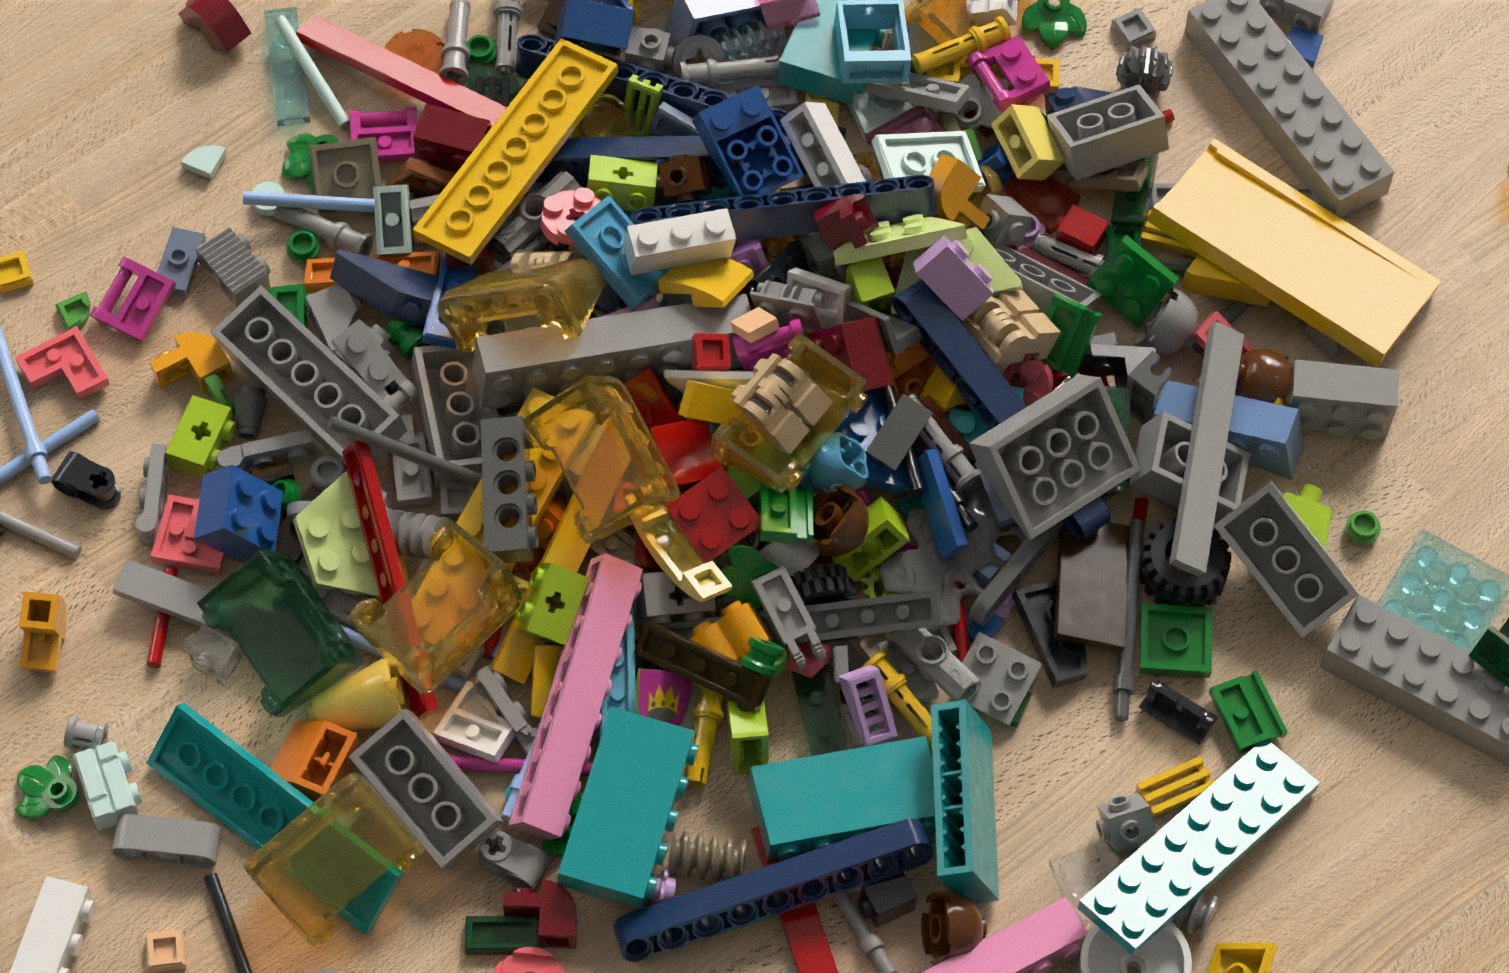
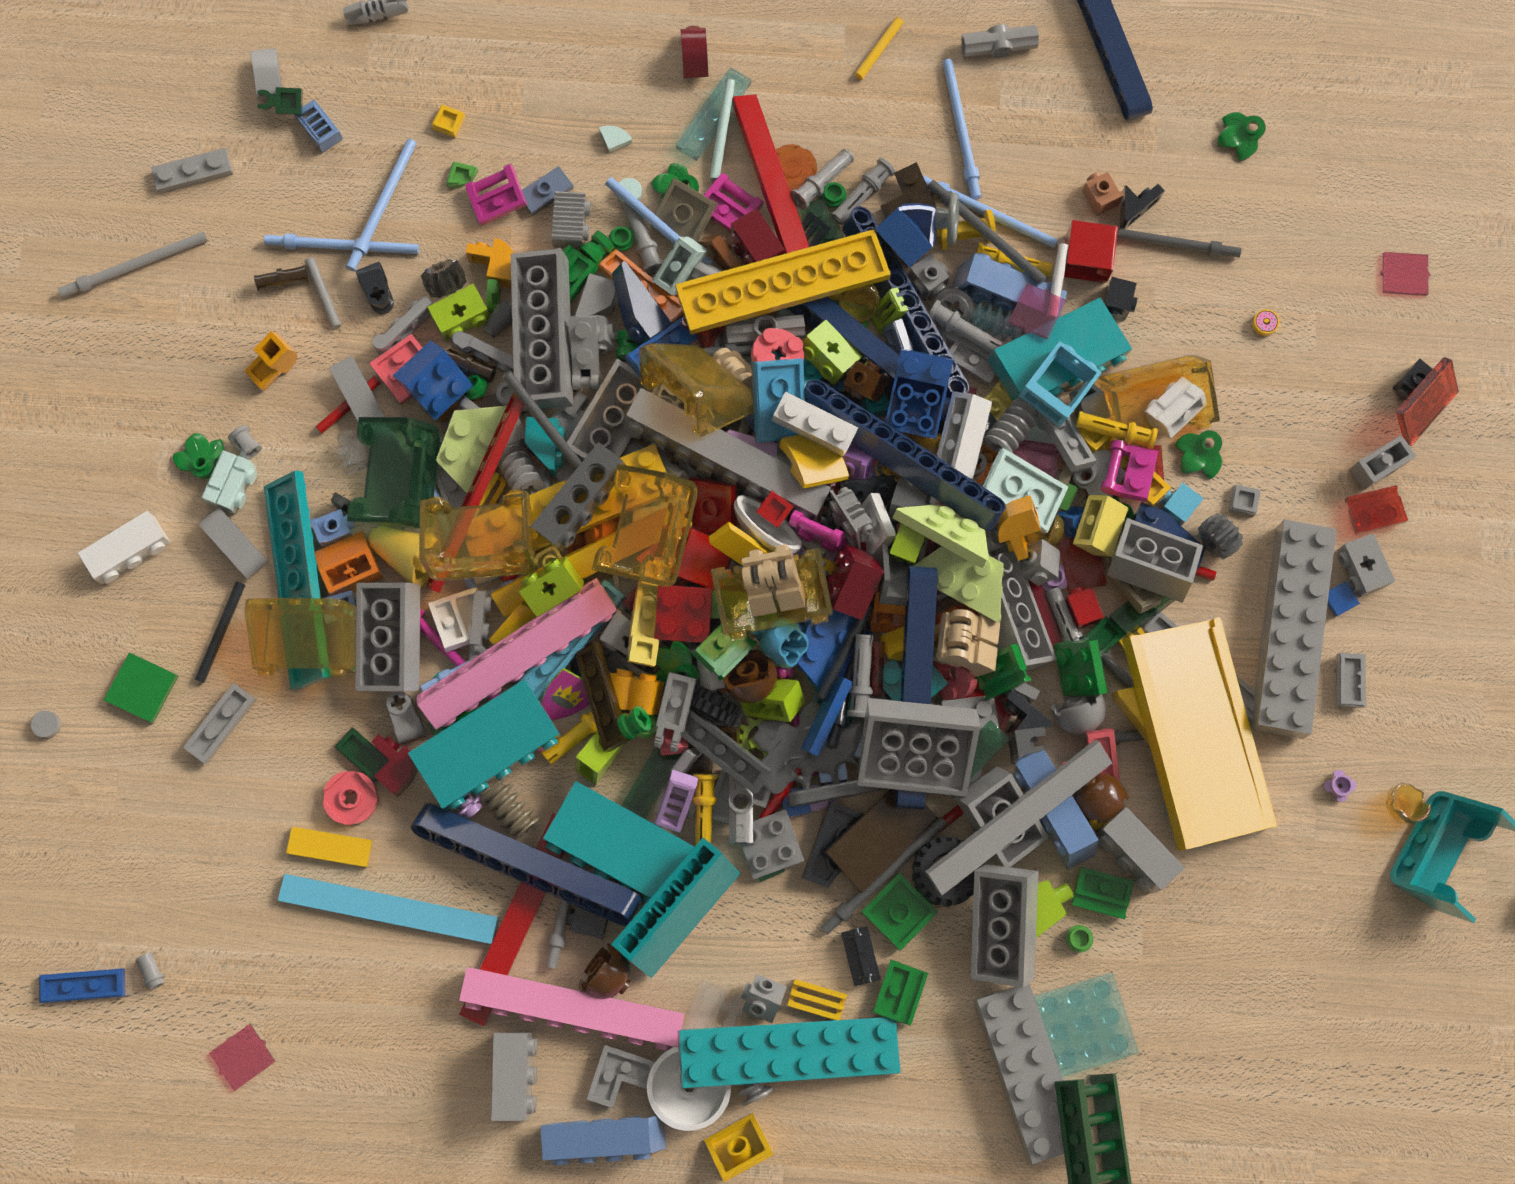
camera: 40 degrees right, 15 degrees up
(64, 355) = (430, 198): coral plate -> none
(155, 415) = (443, 278): none -> clear smoke gear
(165, 951) = (180, 606): light nougat tile -> none
(251, 711) = (340, 502): none -> pearl dark grey tile
(266, 749) = (325, 535): none -> medium blue brick
(287, 268) = (597, 247): none -> green wheel
(413, 487) = (541, 445): none -> teal slope
(754, 325) = (813, 514): light nougat tile -> none
(846, 221) = (923, 494): dark red brick -> none
(861, 117) = (1011, 427): none -> light grey piece
(898, 432) = (838, 653): dark grey tile -> none
(954, 277) = (954, 585): lavender brick -> none
(1080, 69) = (1181, 503): none -> medium azure brick
(1344, 468) = (1102, 893): none -> green plate
(1381, 107) = (1350, 680): none -> light grey plate
(1464, 198) = (1348, 785): none -> lavender plate

